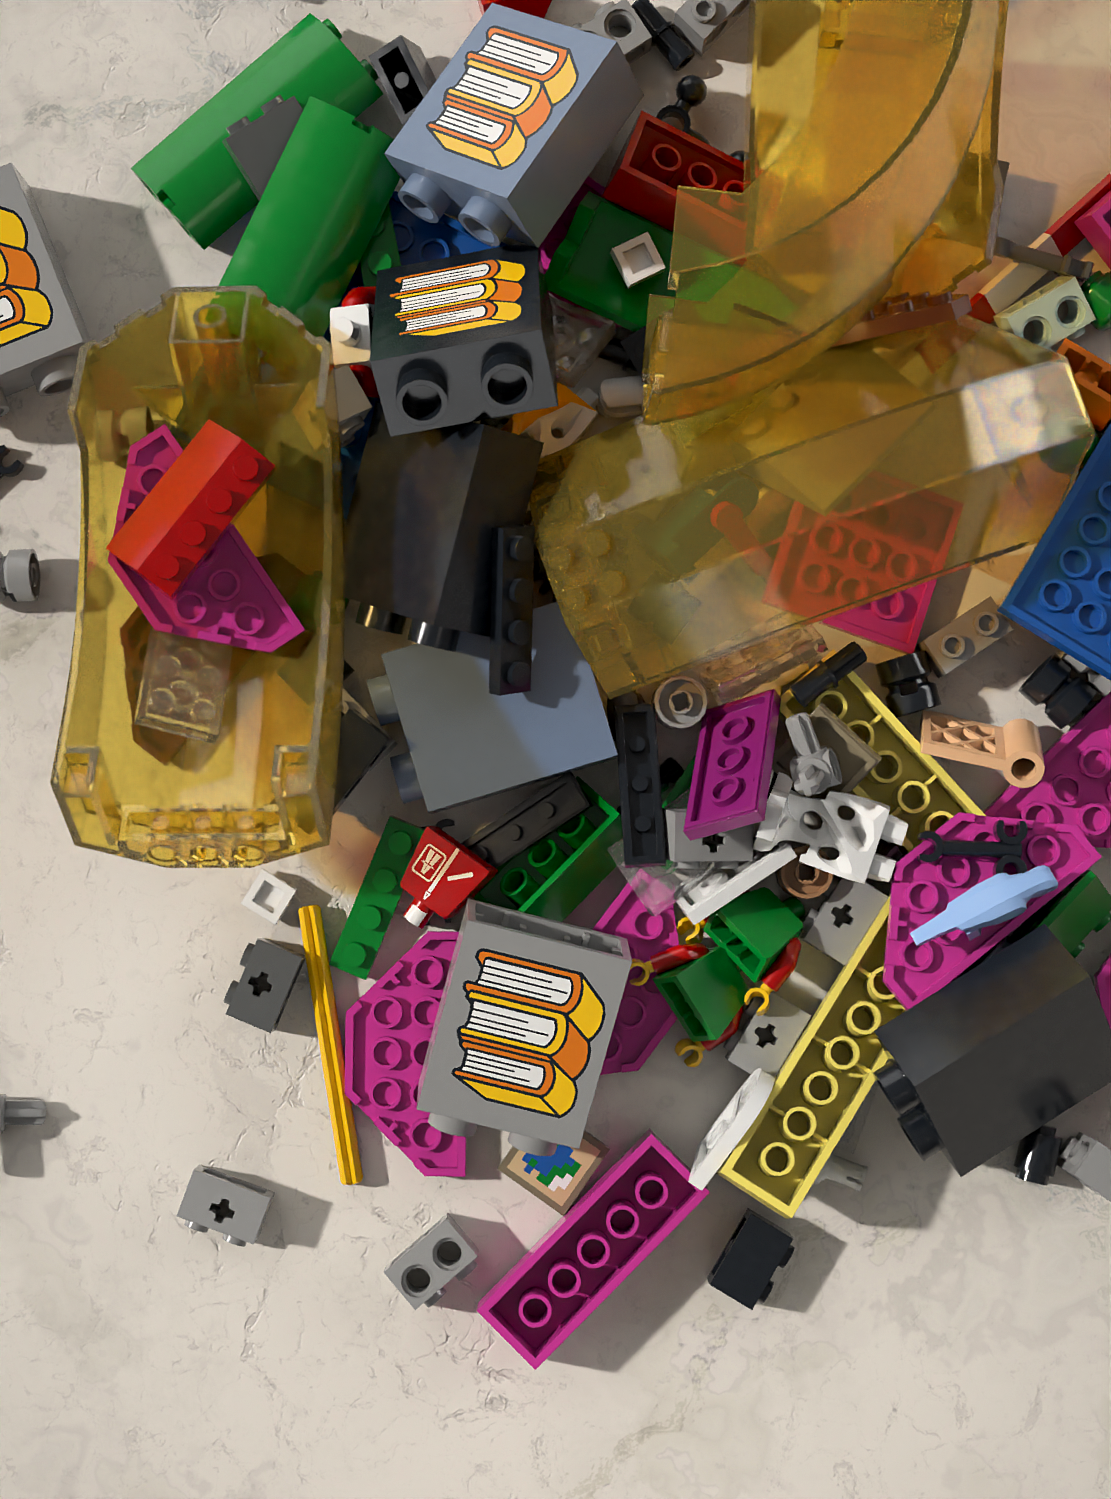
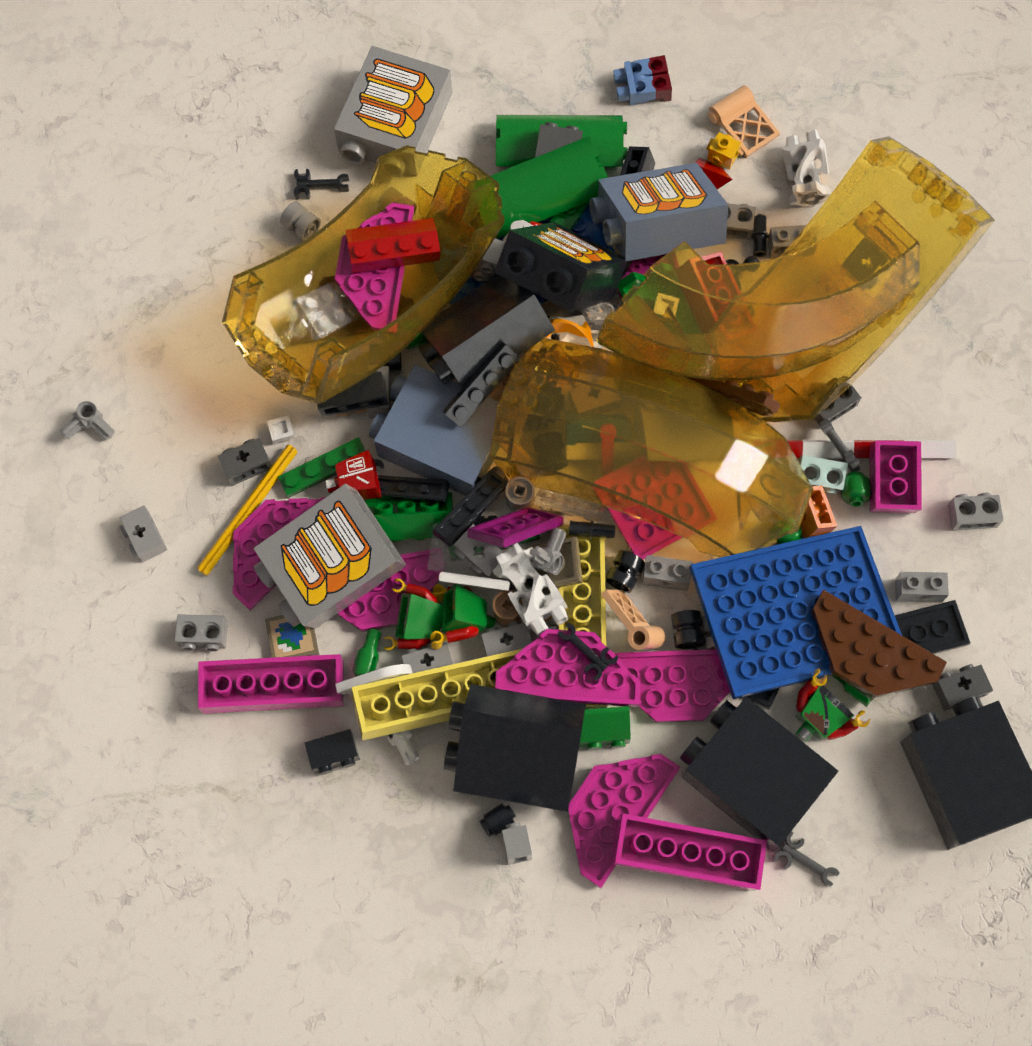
camera: 45 degrees right, 15 degrees down
(679, 1098) = (367, 656): none -> green arm
(988, 904) = (569, 674): light blue animal -> none

